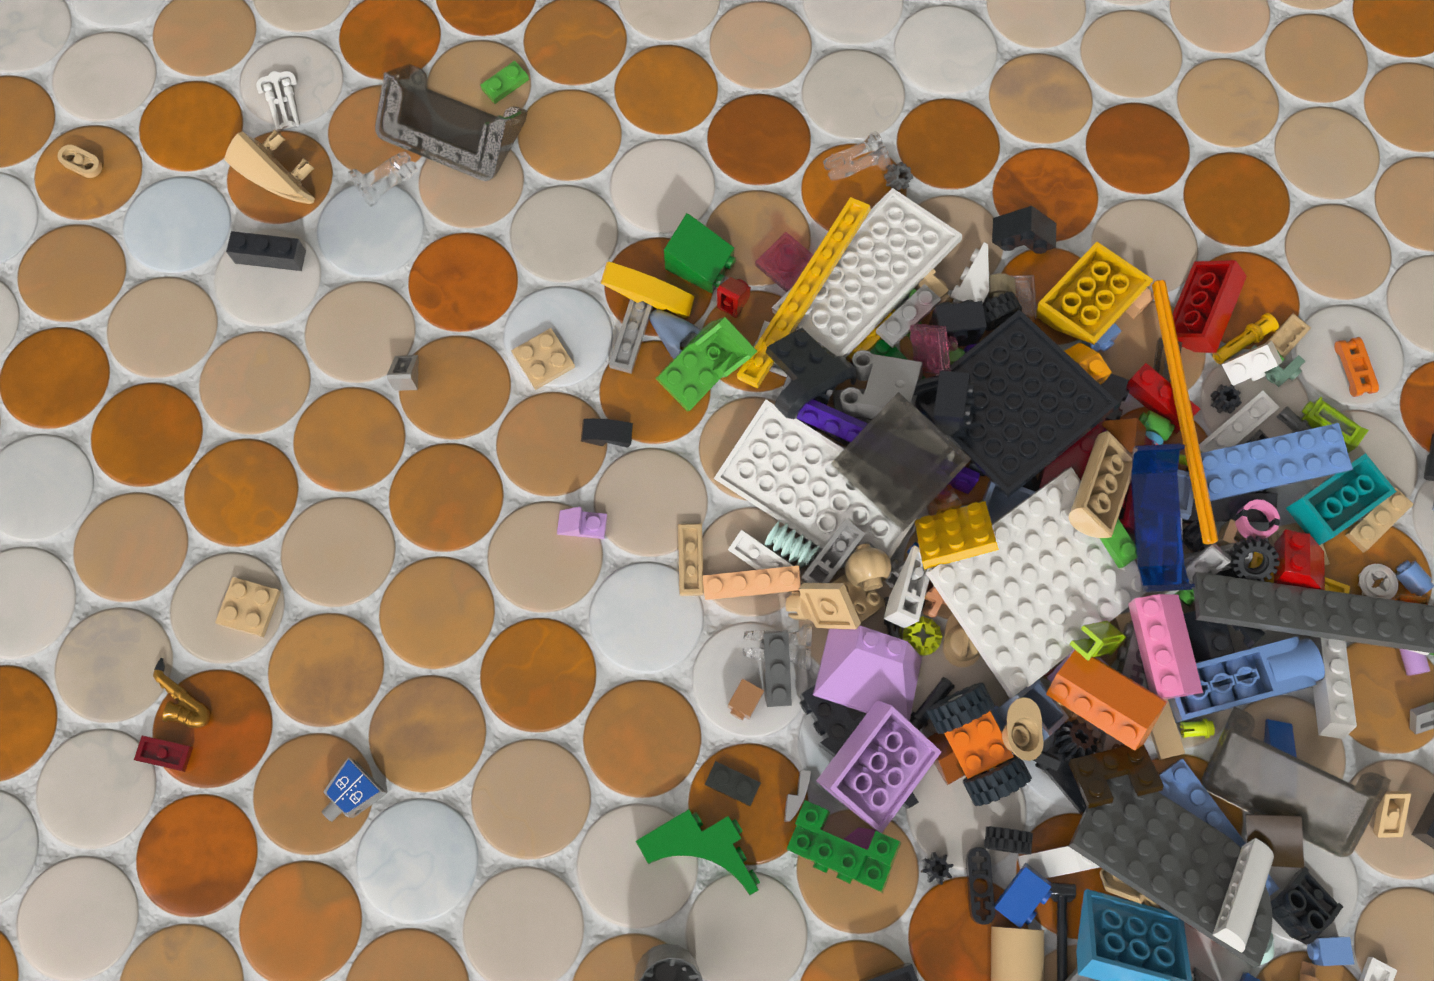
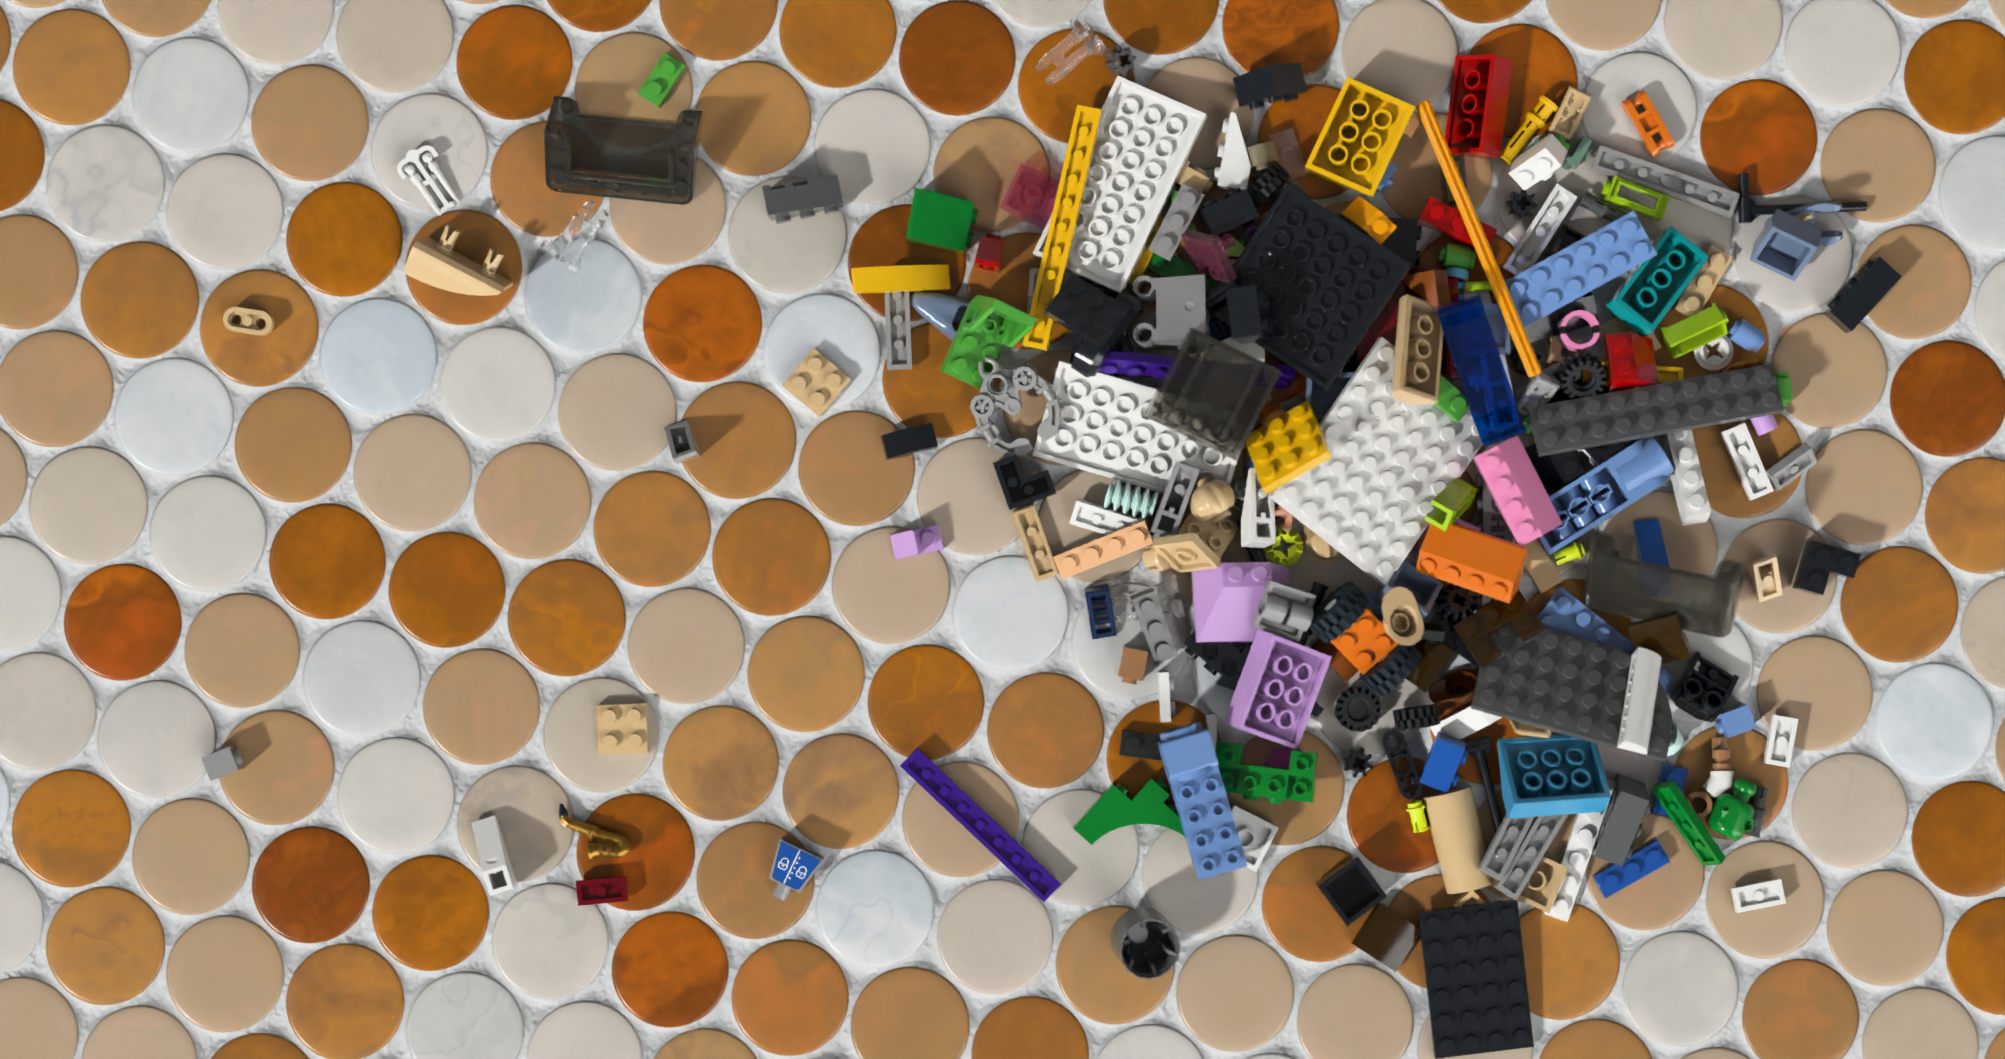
camera: 15 degrees left, 15 degrees up
(75, 687) = (493, 856): none -> white slope
(266, 251) = (489, 359): black brick -> none
(548, 810) = (980, 824): none -> dark purple plate
(586, 203) = (803, 198): none -> dark grey wedge
(694, 504) = (1020, 490): none -> black brick
(709, 420) = (1009, 399): none -> light grey piece
(723, 630) = (1096, 591): none -> dark blue slope
(770, 731) = (1167, 707): none -> white plate
(771, 853) = (1201, 800): none -> medium blue brick
(802, 909) = (1254, 836): none -> white plate
(908, 689) = (1284, 610): none -> light grey plate
(936, 819) = (1371, 716): none -> black tyre
(982, 944) = (1417, 816): none -> neon yellow pin
(1035, 793) = (1432, 662): none -> dark brown slope
(1050, 821) = (1454, 687): none -> reddish brown cap
(1366, 557) = (1695, 331): none -> lime window
(1380, 429) = (1665, 181): none -> light grey plate
(1391, 696) = (1746, 461): none -> white plate

